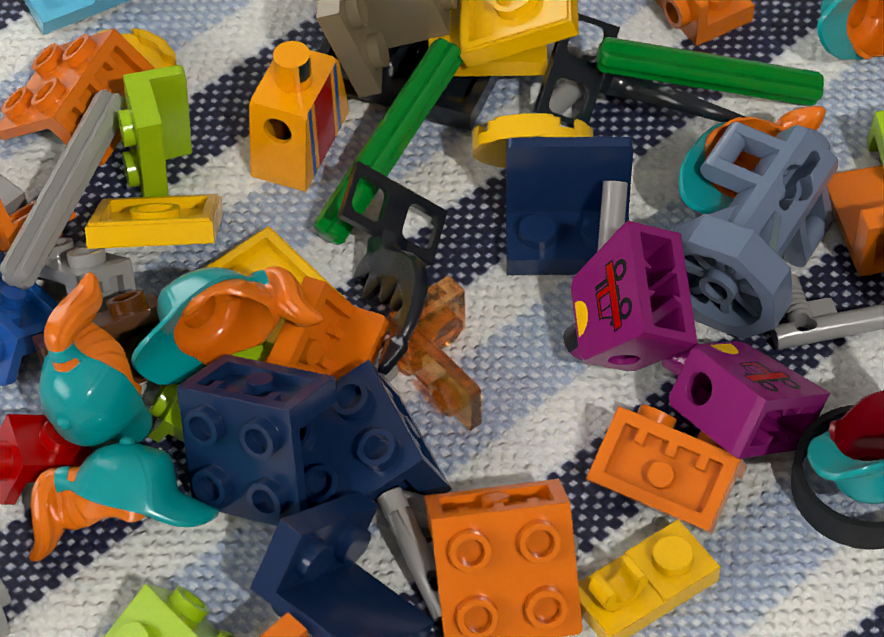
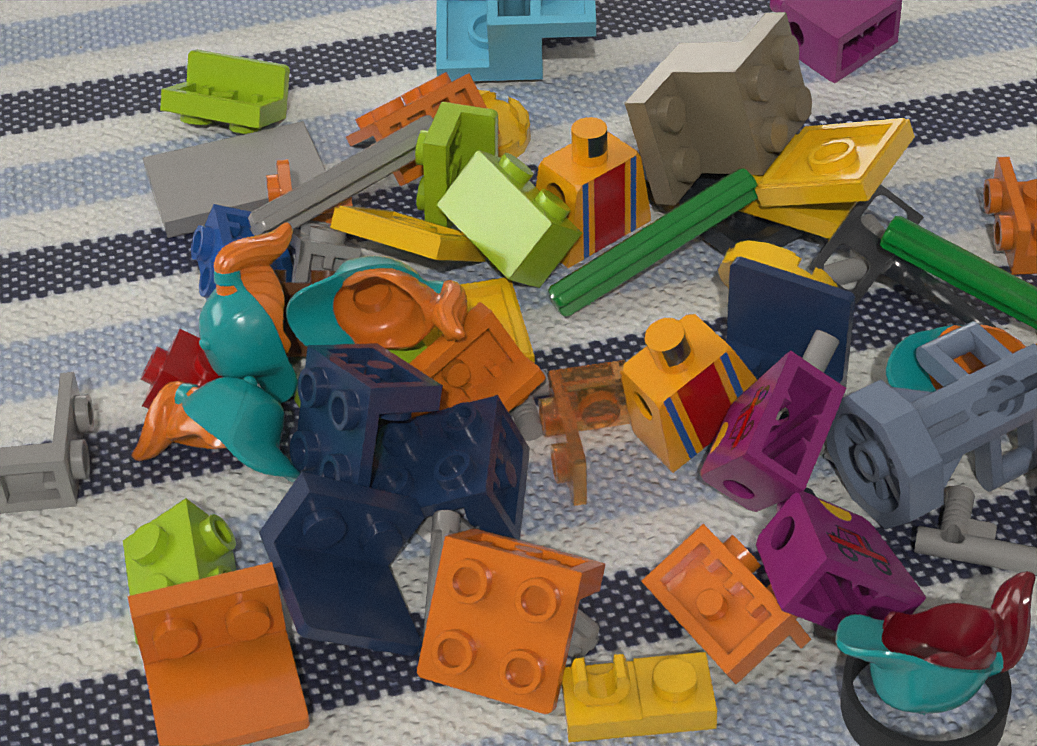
camera: 30 degrees right, 10 degrees down
(243, 167) = (510, 218): none -> lime brick
(391, 261) = (598, 319): black piece -> none
(525, 277) = (682, 388): none -> light orange torso

